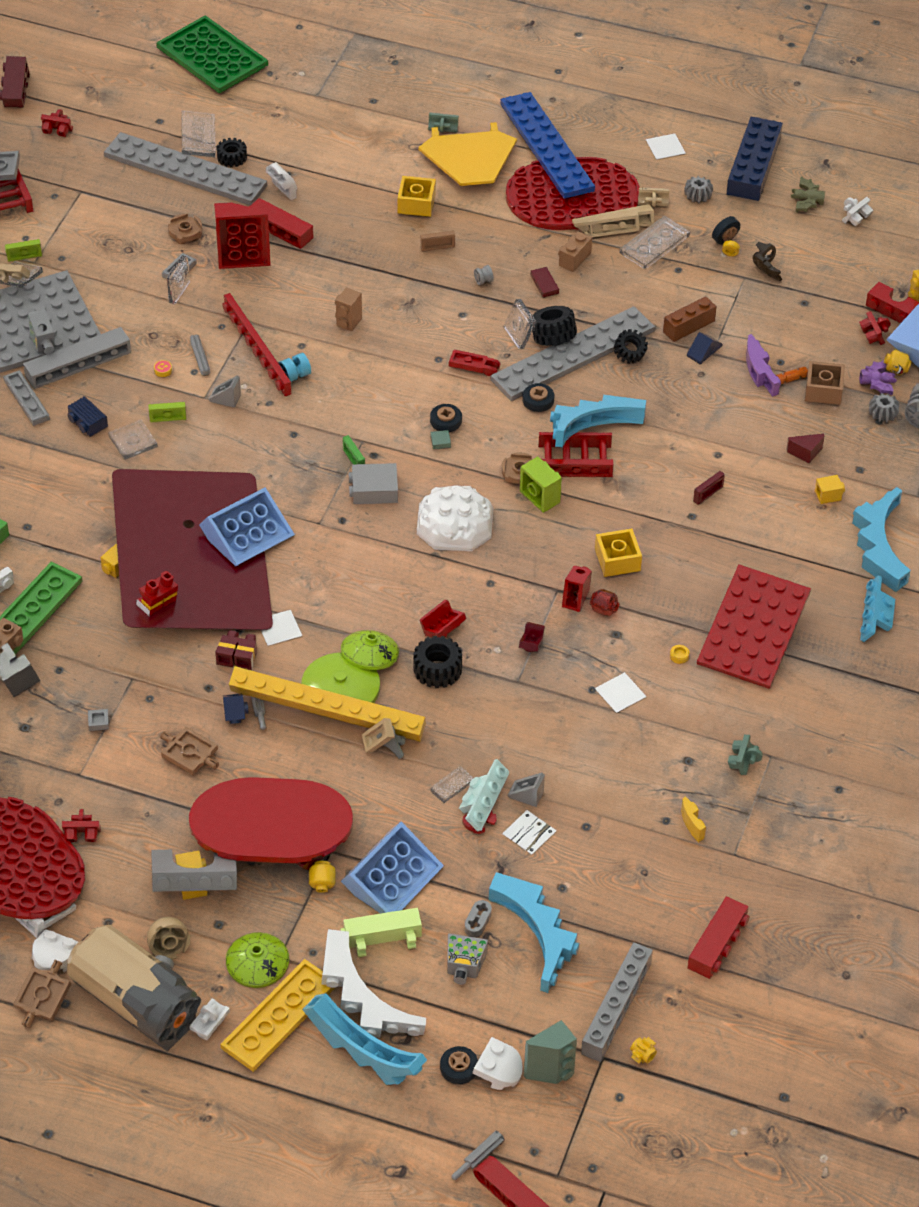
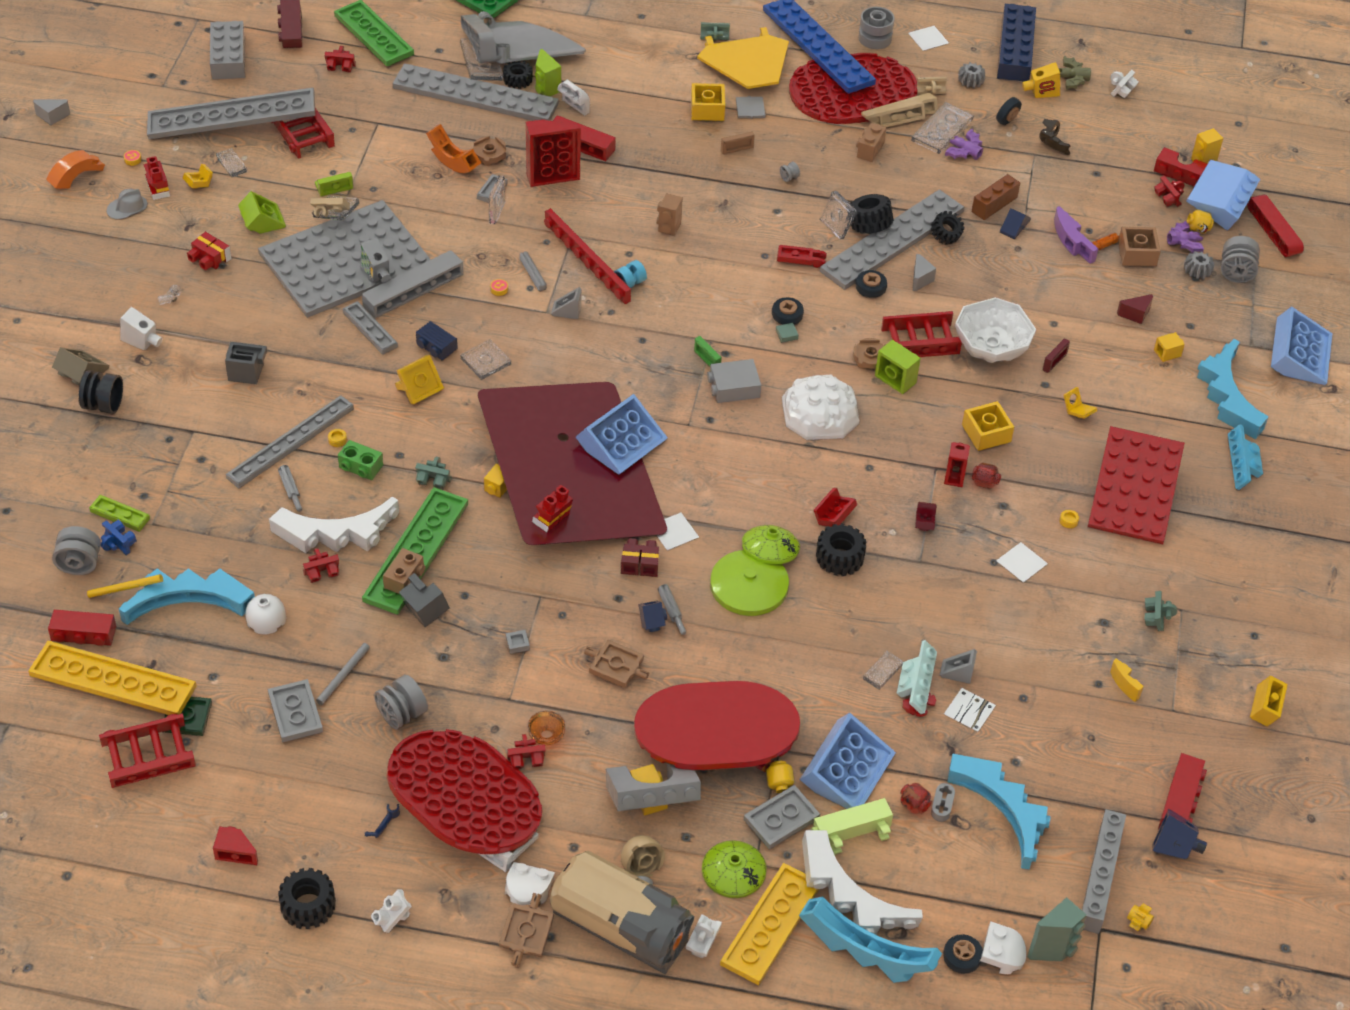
camera: 10 degrees left, 0 degrees up
(56, 544) = (435, 470): none -> sand green hips
(60, 454) = (419, 379): none -> yellow bracket
(97, 98) = (374, 33): none -> bright green plate
(105, 799) = (546, 721): none -> clear orange piece
(142, 228) = (449, 154): none -> orange arch
(167, 412) = (514, 329): lime panel -> none
(236, 117) = (514, 40): none -> light grey panel
(258, 154) = (547, 74): none -> lime slope
(314, 915) = (781, 817): none -> light grey plate
(324, 702) = (745, 602): yellow brick -> none
(383, 735) = (806, 628): tan piece -> none
(450, 911) = (915, 798): none -> clear red head
(461, 205) = (750, 107): none -> light grey piece
(465, 956) = (940, 842): light grey torso -> none
(544, 282) = (848, 173): dark red tile -> none
(589, 413) = (925, 295): medium azure arch -> none
(593, 389) = (923, 273): none -> light grey slope
(610, 131) = (876, 27): none -> light grey wheel
(648, 455) = (994, 330): none -> white rock
(673, 264) = (966, 147): none -> medium lavender animal
(700, 977) = (1177, 837): none -> dark blue torso
(718, 543) = (1077, 408): none -> yellow bracket
(730, 248) = (1016, 127): yellow tile -> none
(771, 202) = (1044, 81): none -> yellow torso
(830, 855) = (1268, 701): none -> yellow brick

